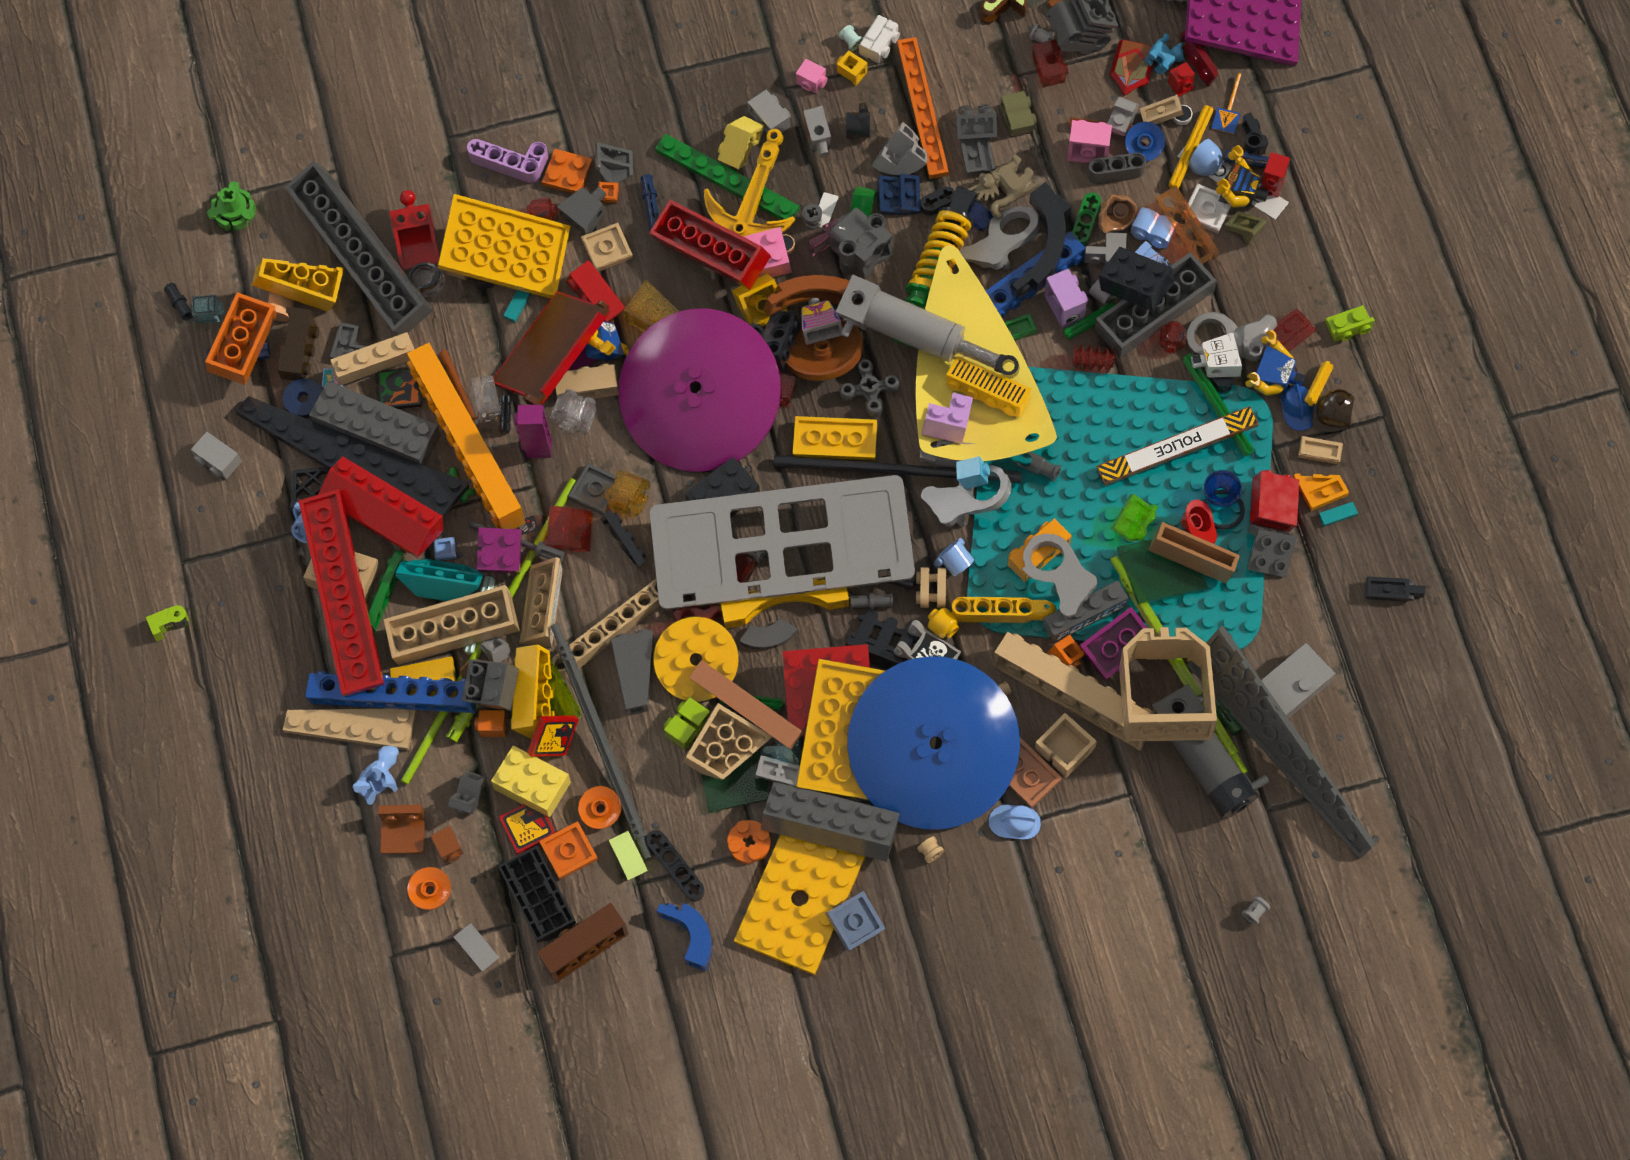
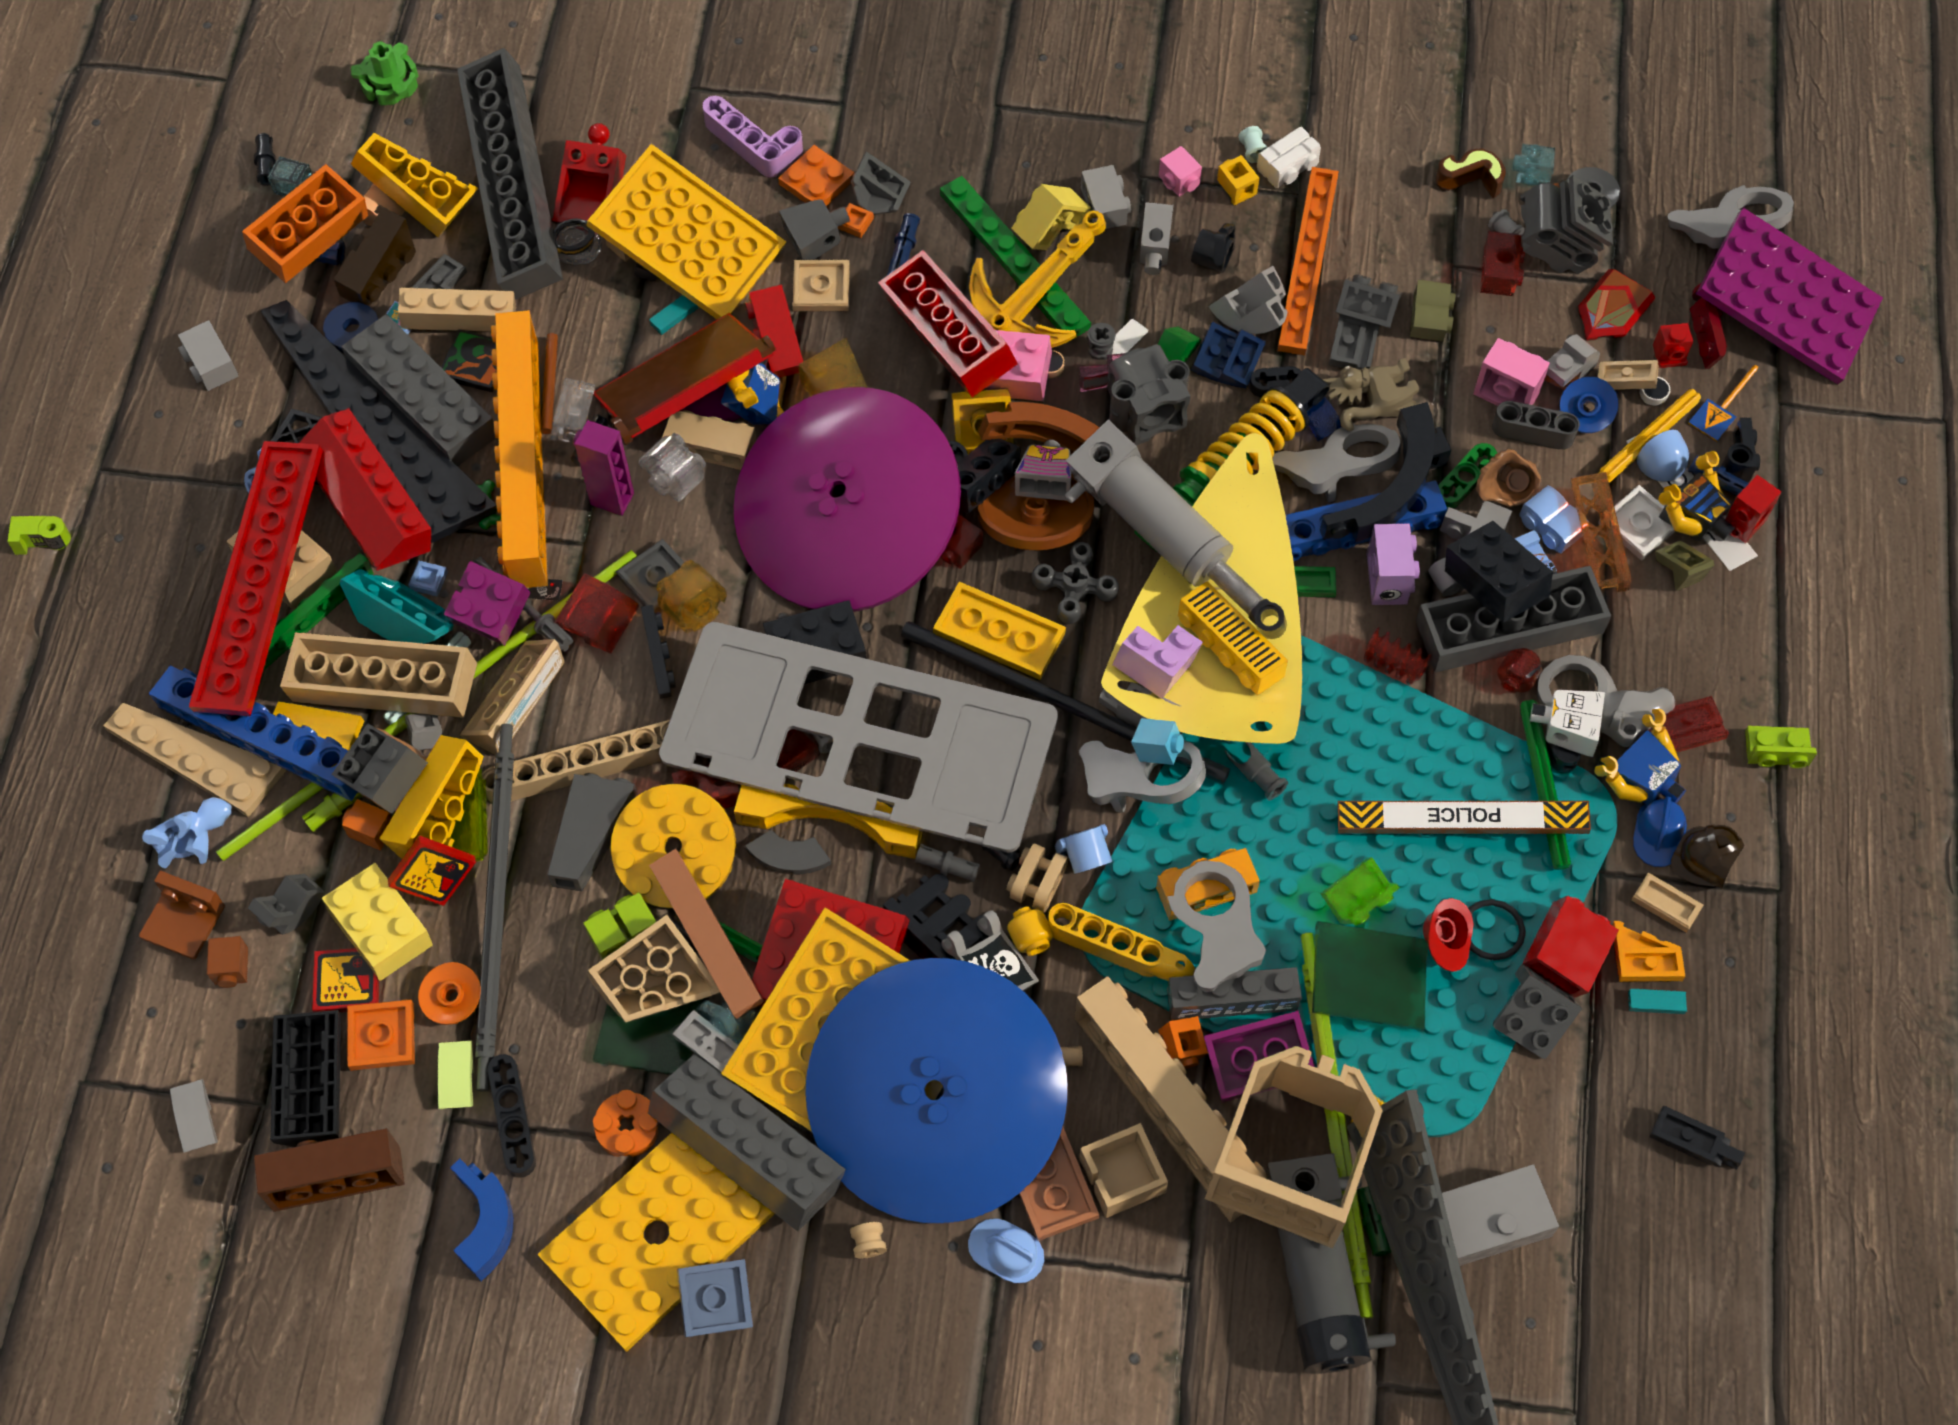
camera: 20 degrees right, 5 degrees down
(425, 879) = (167, 998): orange dish -> none
(543, 208) = (762, 208): clear red head -> none
(1085, 323) = (1402, 609): green axle -> none
(1163, 55) = (1660, 306): dark azure animal -> none
(1194, 552) = (1423, 972): medium nougat brick -> none
(1224, 480) = (1505, 887): clear blue piece -> none
(1319, 383) = (1701, 809): yellow axle -> none

